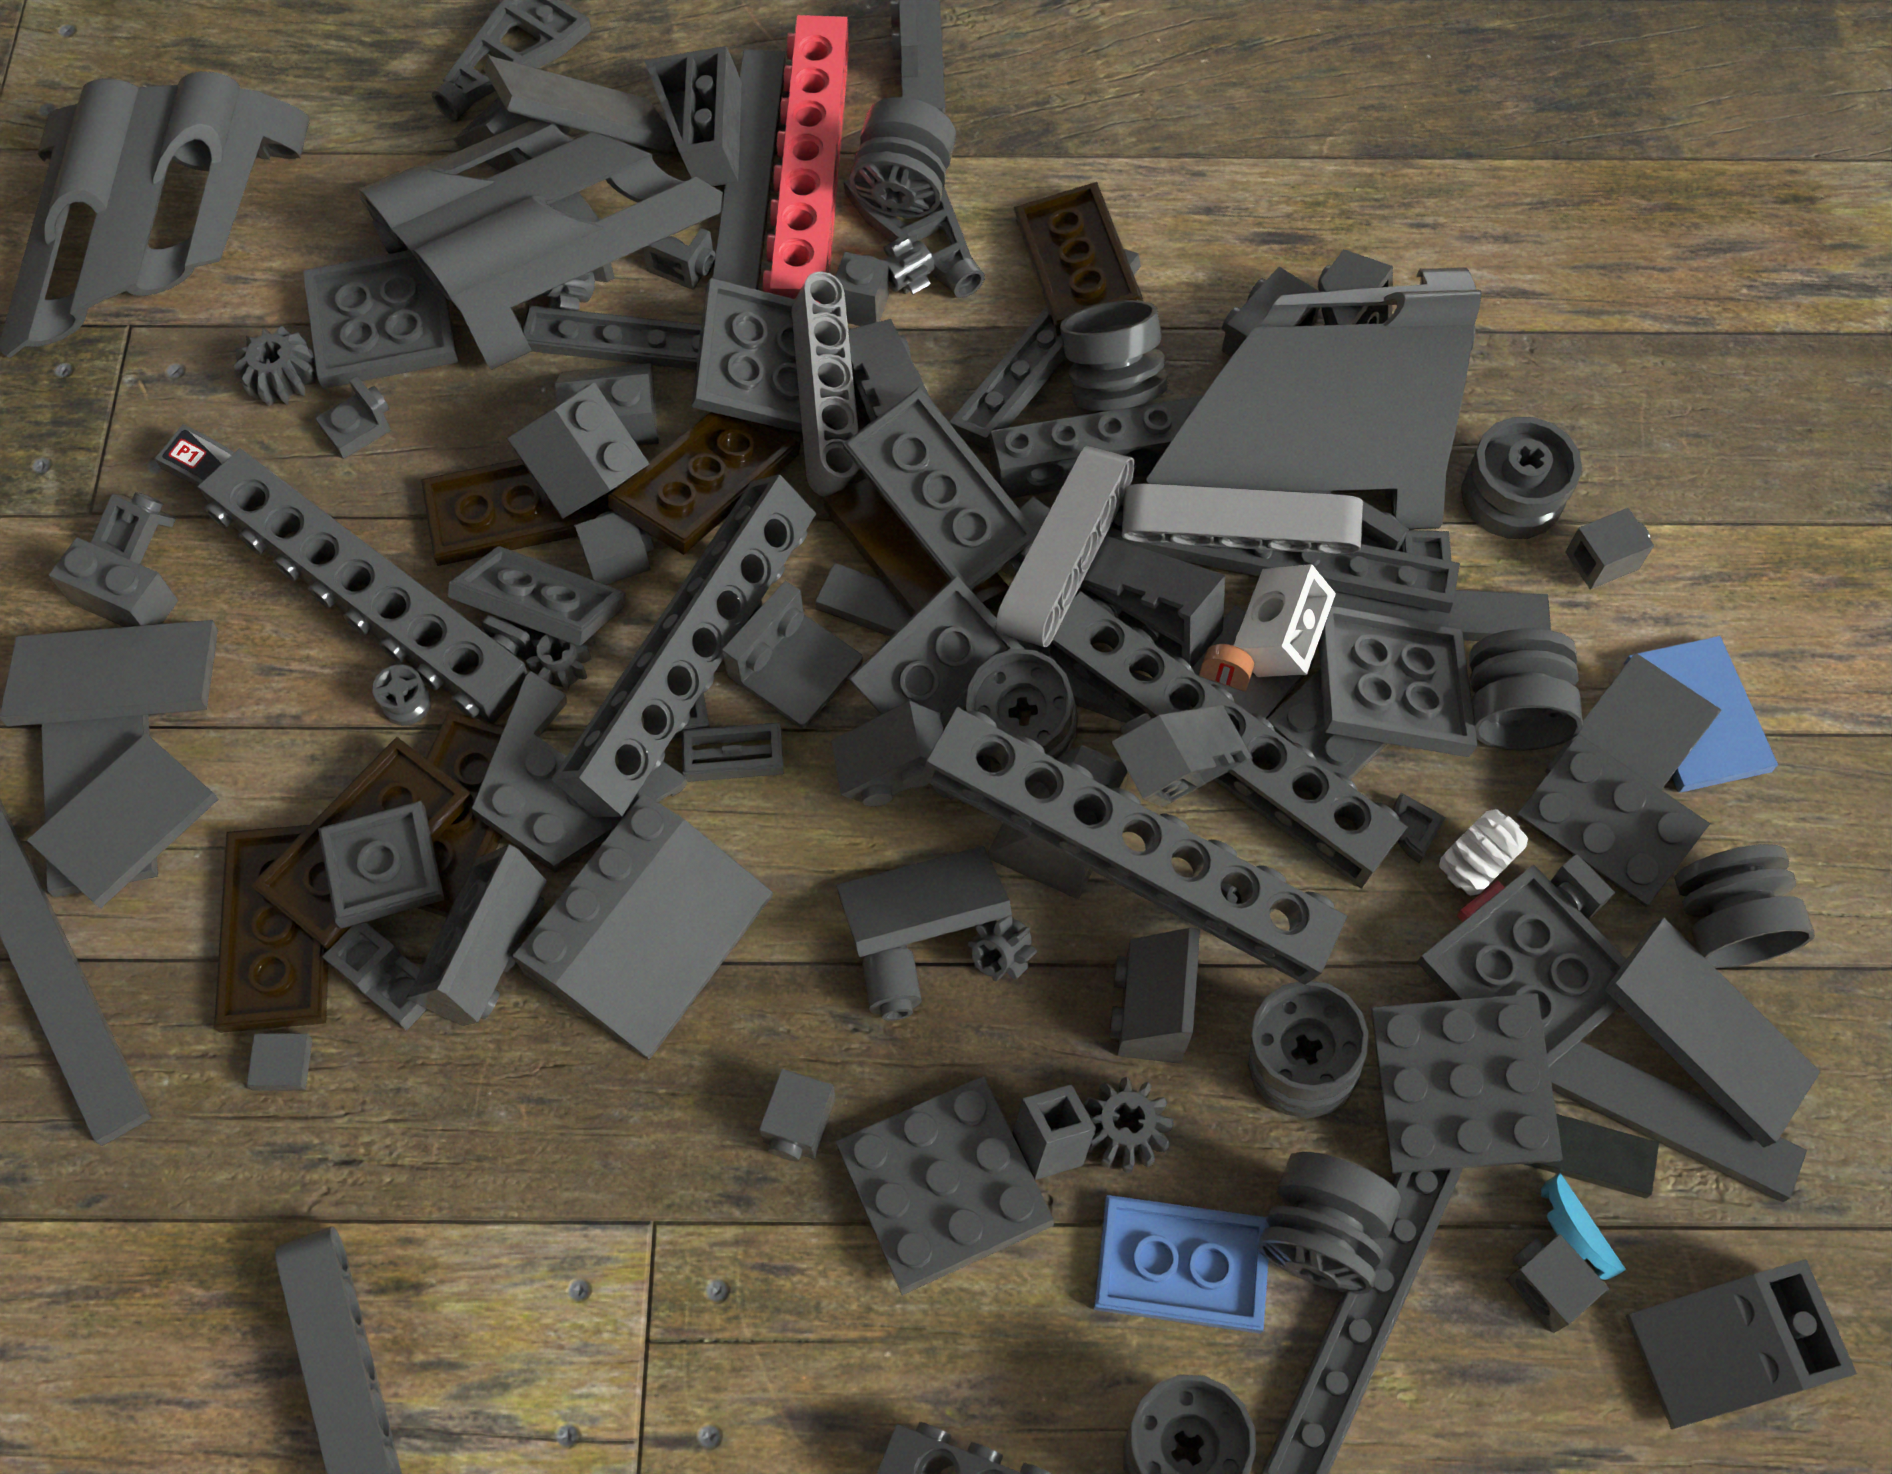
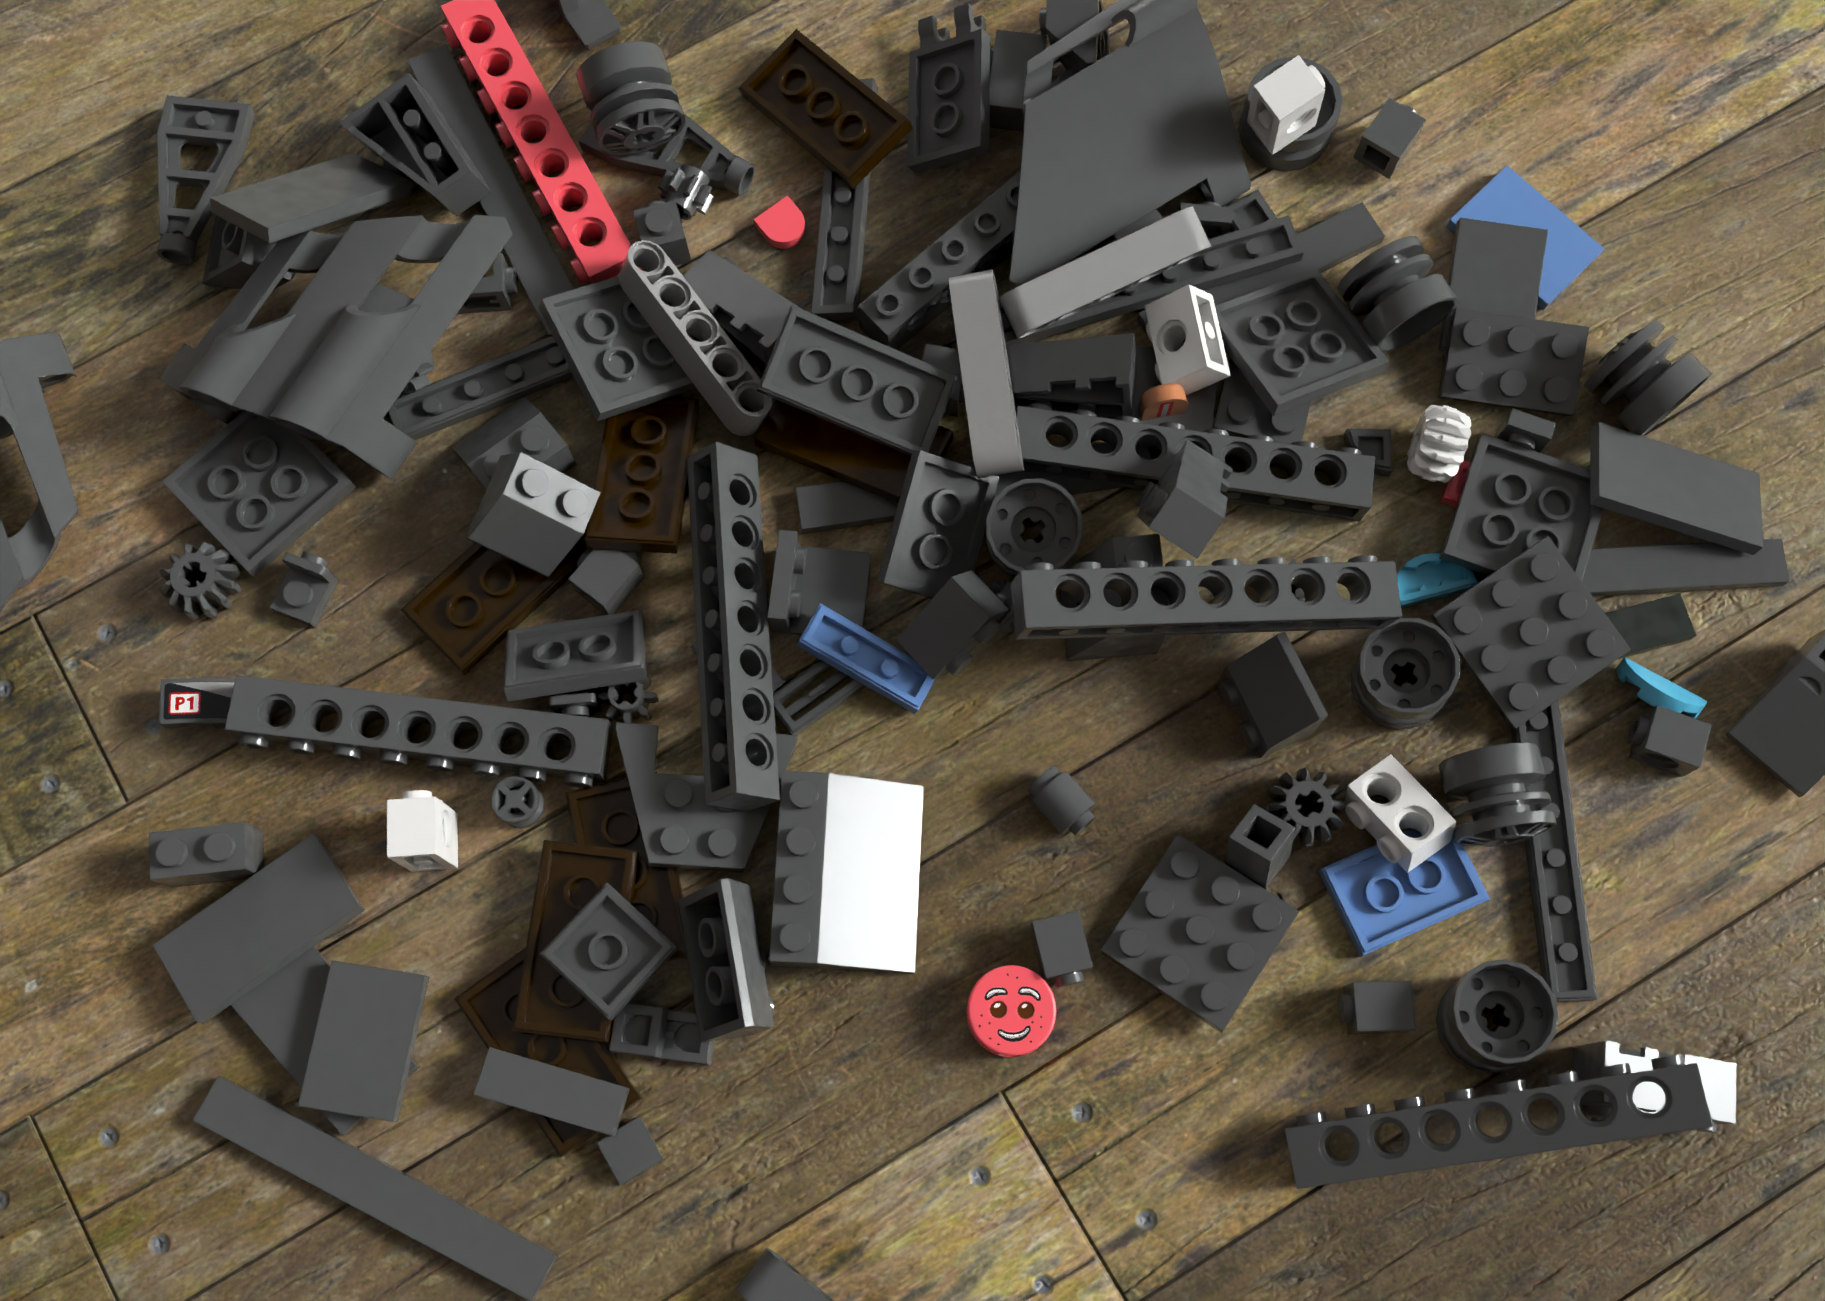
camera: 30 degrees left, 10 degrees up
(130, 524) = (178, 794): dark grey bracket -> none
(247, 962) = (551, 1091): none -> dark grey tile
(296, 667) = (422, 832): none -> white brick
(710, 1147) = (1011, 1011): none -> coral head
(794, 743) = (866, 658): none -> medium blue tile
(923, 901) = (1049, 726): dark grey tile -> none
(977, 338) = (782, 224): none -> coral tile
(1002, 948) = (1131, 727): dark grey gear -> none
(1073, 1365) = (1377, 1007): none -> dark grey brick
(1115, 355) = (917, 183): dark grey wheel -> none
(1209, 293) = (949, 92): none -> dark grey tile
(1227, 1183) = (1408, 808): none -> white brick
(1392, 980) = (1431, 578): none -> medium azure tile
(1508, 449) = (1286, 104): none -> white brick

